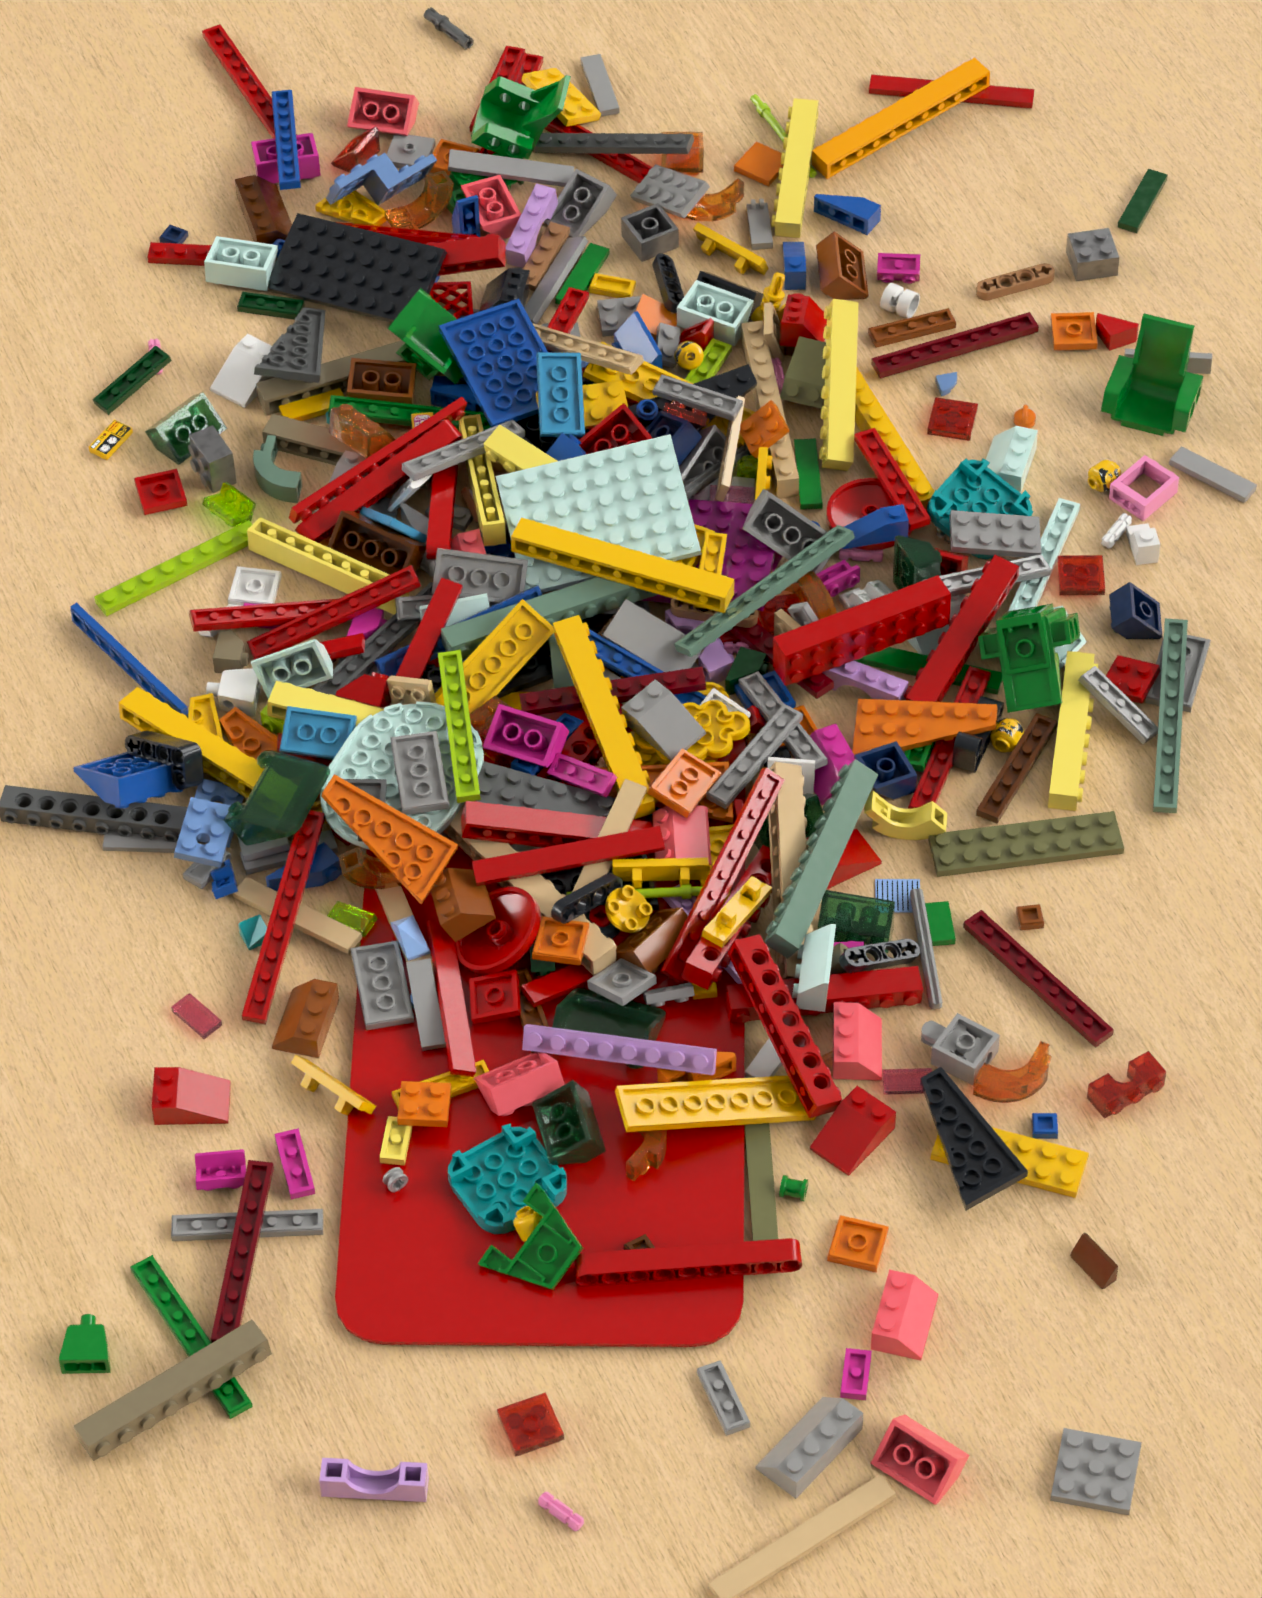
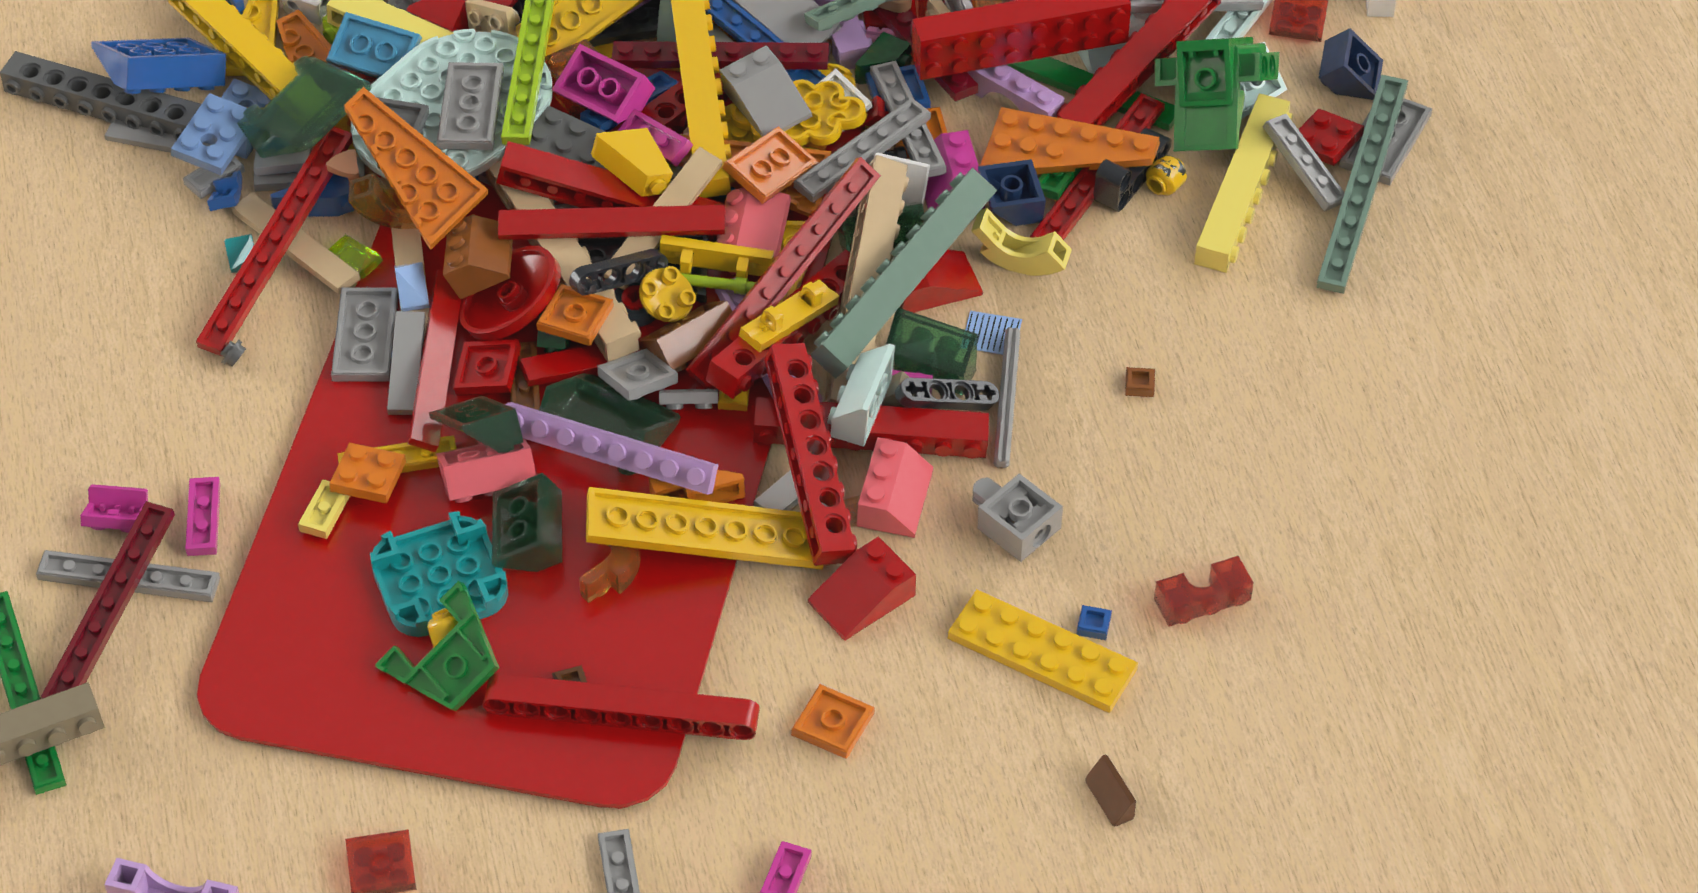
camera: 10 degrees right, 0 degrees up
(180, 754) = (210, 44): black beam -> none
(189, 1097) = (107, 421): slope -> none
(196, 1016) = (148, 334): clear pink tile -> none
(275, 1020) = (232, 352): none -> dark grey plate
(307, 1018) = (271, 358): dark orange slope -> none
(329, 843) = (344, 165): none -> nougat tile
(347, 1097) = (259, 422): yellow hinge -> none
(395, 1179) = (309, 552): light grey bush -> none
(510, 1045) = (482, 422): none -> clear green slope
(573, 799) = (634, 160): none -> yellow slope
(761, 1182) = (738, 629): olive tile -> none
(793, 1188) = (773, 642): green bush -> none
(903, 1080) = (944, 543): clear pink tile -> none
(904, 1316) = (862, 815): coral slope -> none
(940, 923) = (1031, 372): green tile -> none
(974, 1151) = (997, 633): black wing -> none
(1016, 768) = (1167, 214): reddish brown plate -> none
(1017, 1084) = (1070, 568): clear orange arch -> none
(1026, 844) = (1157, 299): olive plate -> none
(1038, 978) = (1131, 453): dark red plate -> none

